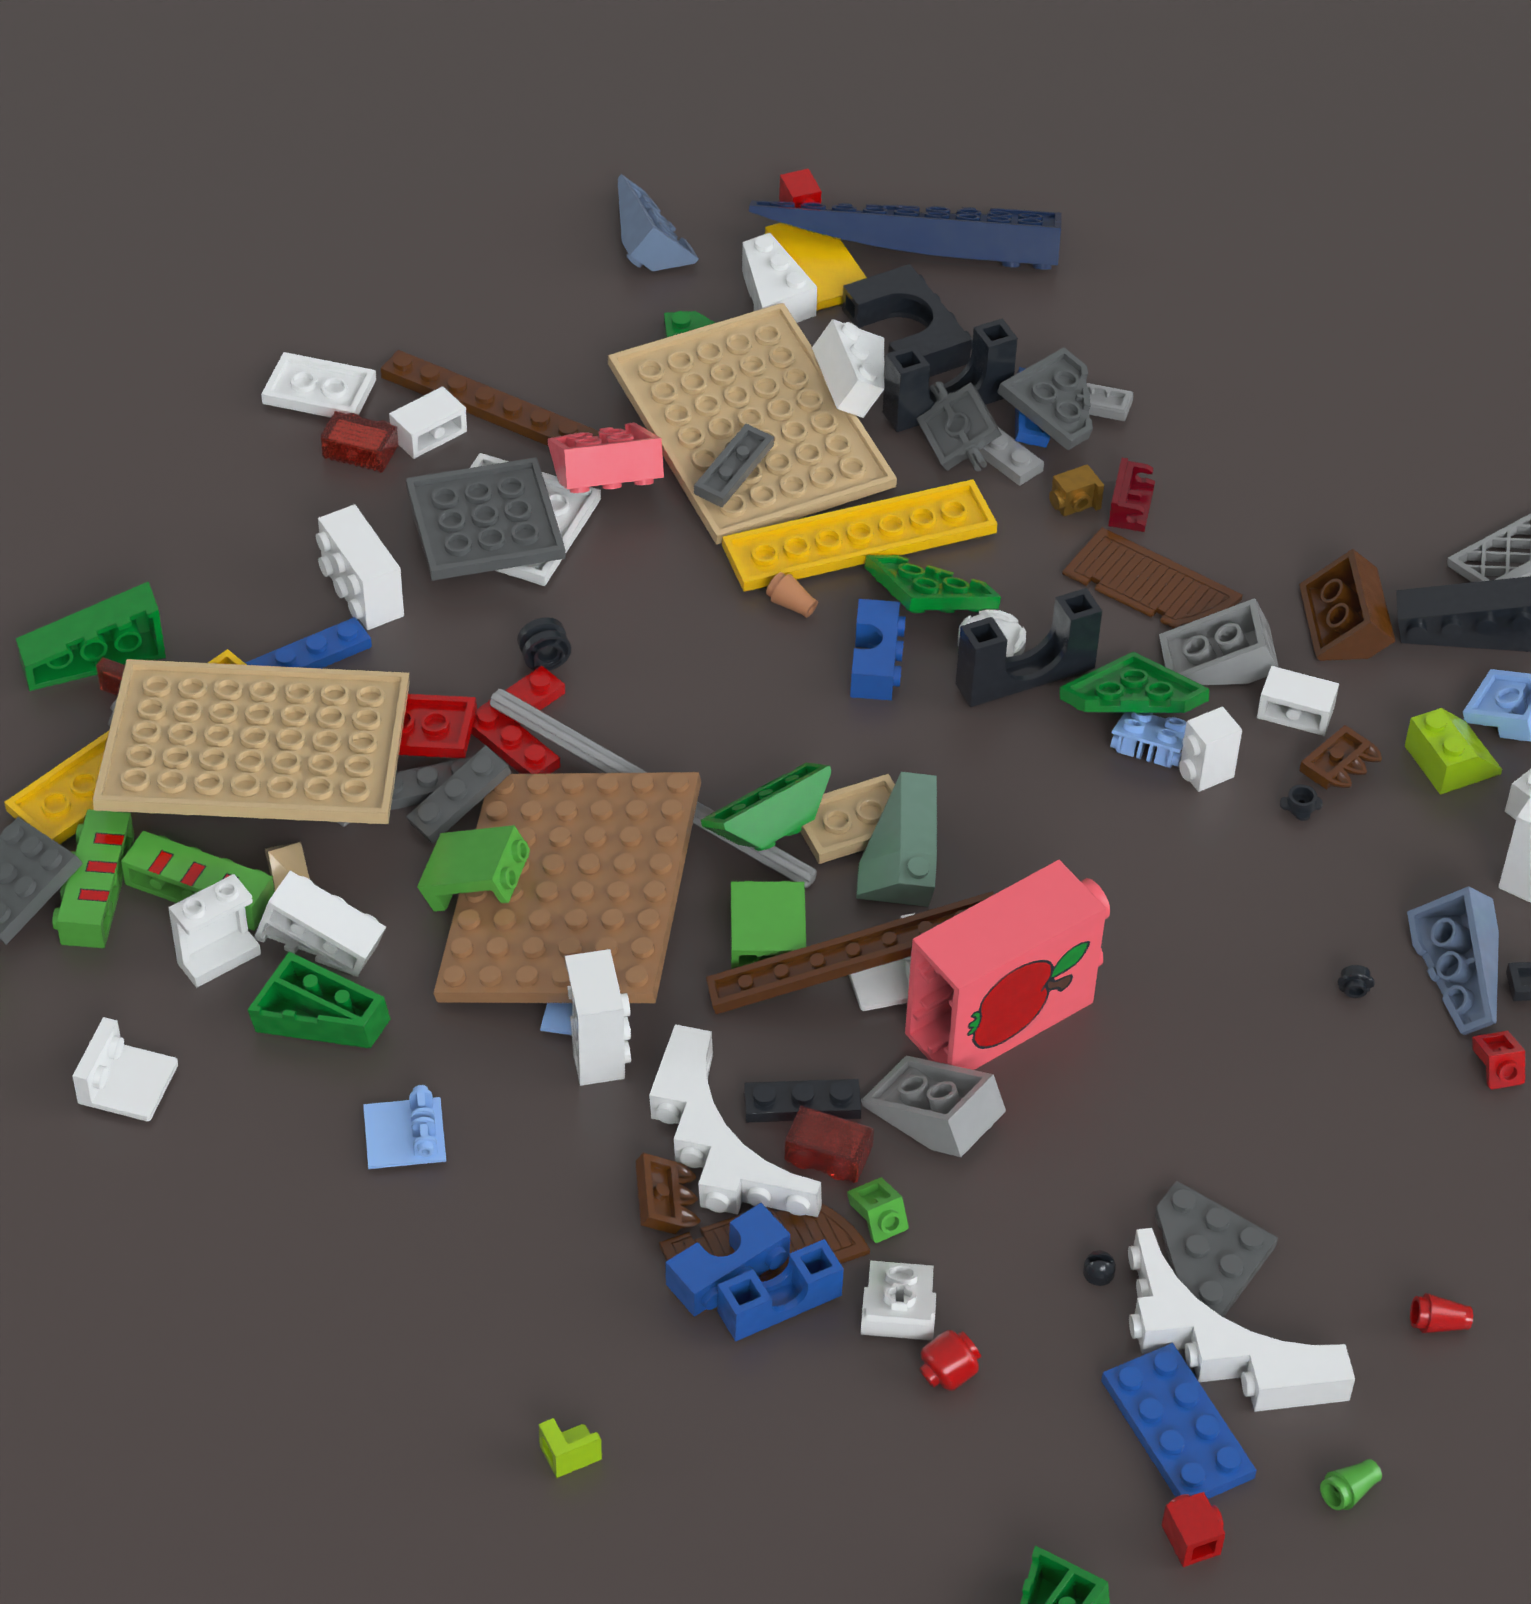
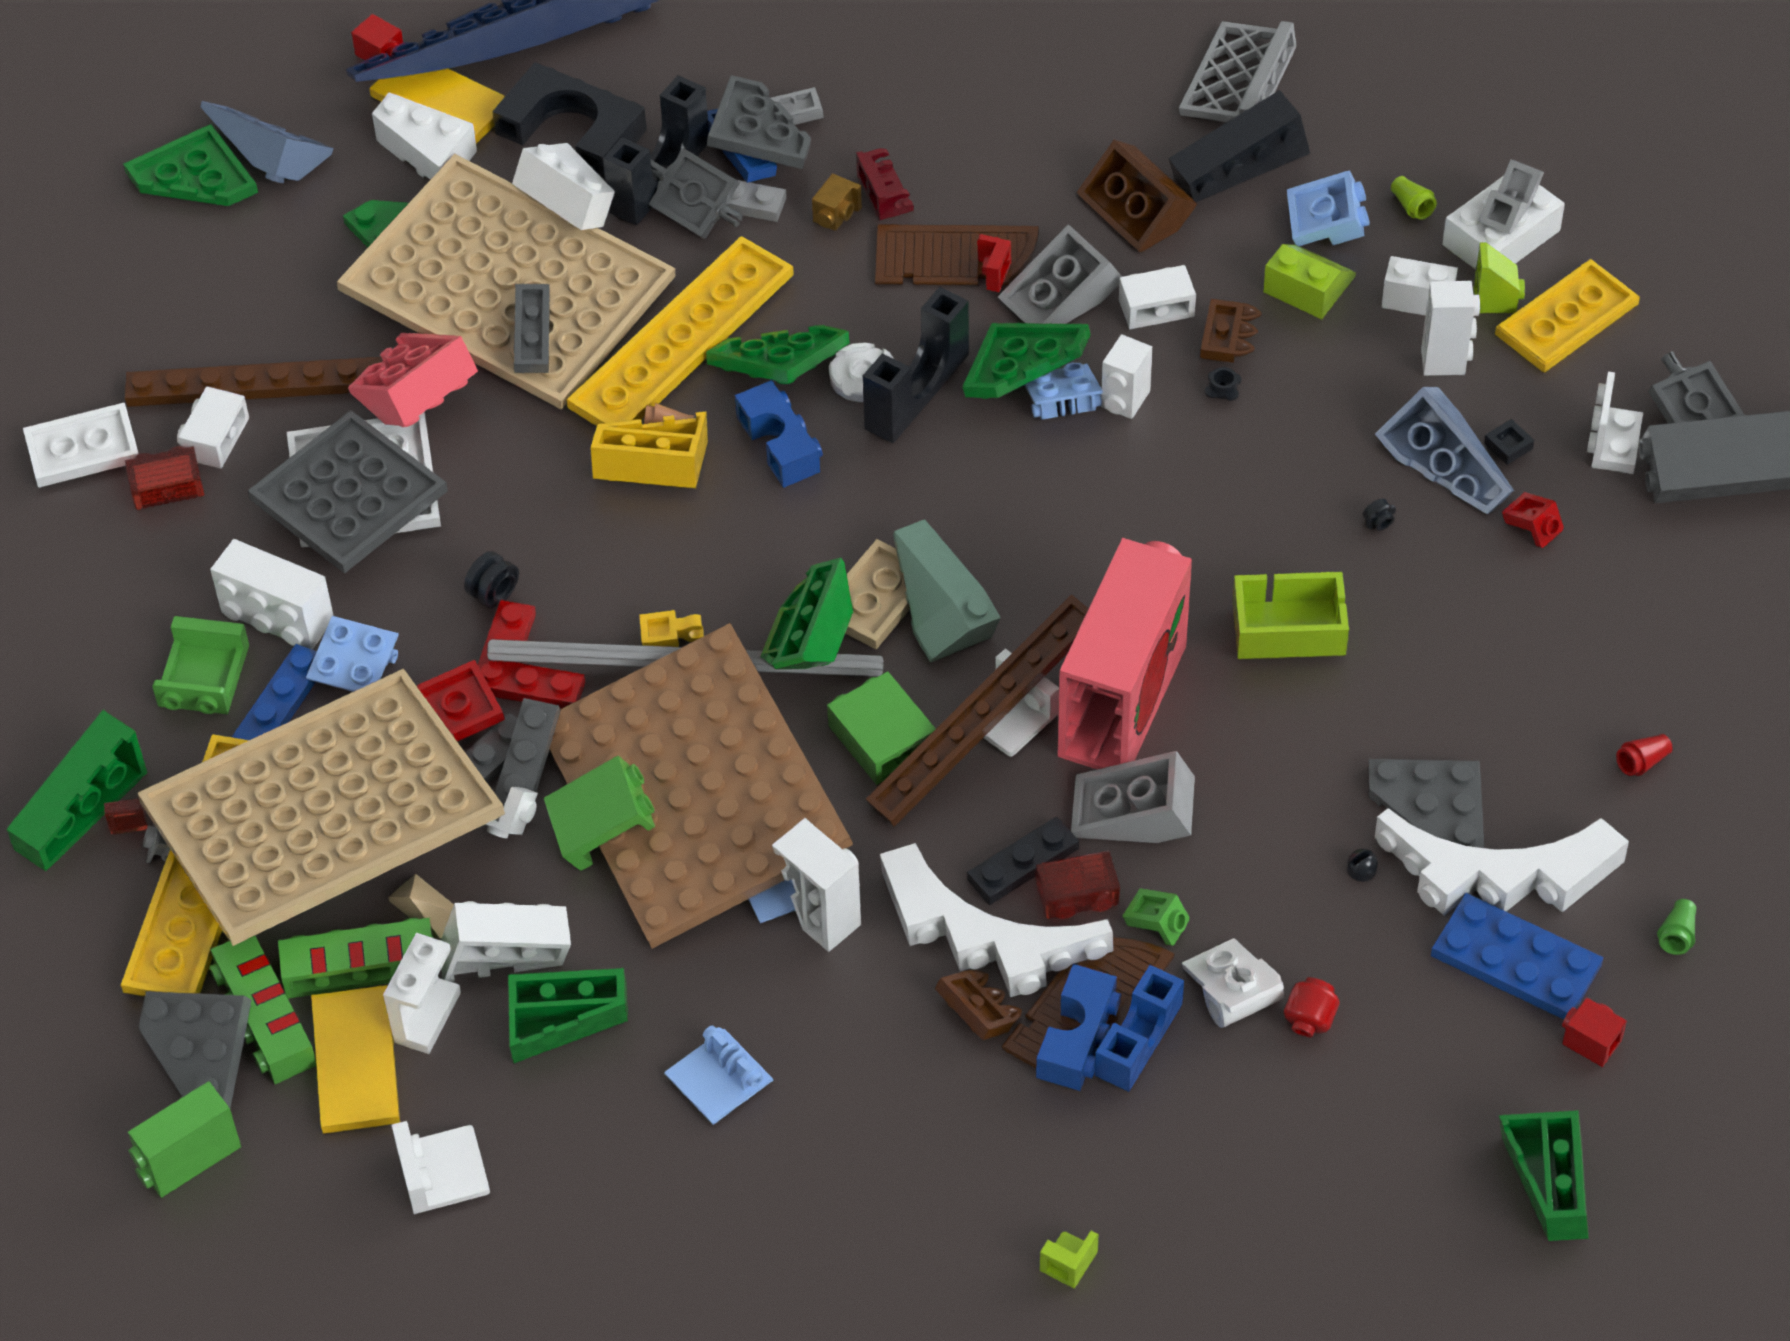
camera: 30 degrees left, 5 degrees up
(127, 963) = (354, 1060): none -> yellow tile
(270, 597) = (202, 665): none -> bright green panel
(389, 645) = (352, 655): none -> light blue hinge
(410, 833) = (518, 810): none -> white bracket
(575, 224) = (193, 169): none -> green plate
(656, 755) = (665, 628): none -> yellow plate
(755, 611) = (652, 452): none -> yellow wedge
(1175, 603) = (996, 260): none -> red bracket
(1204, 1034) = (1301, 621): none -> lime piece

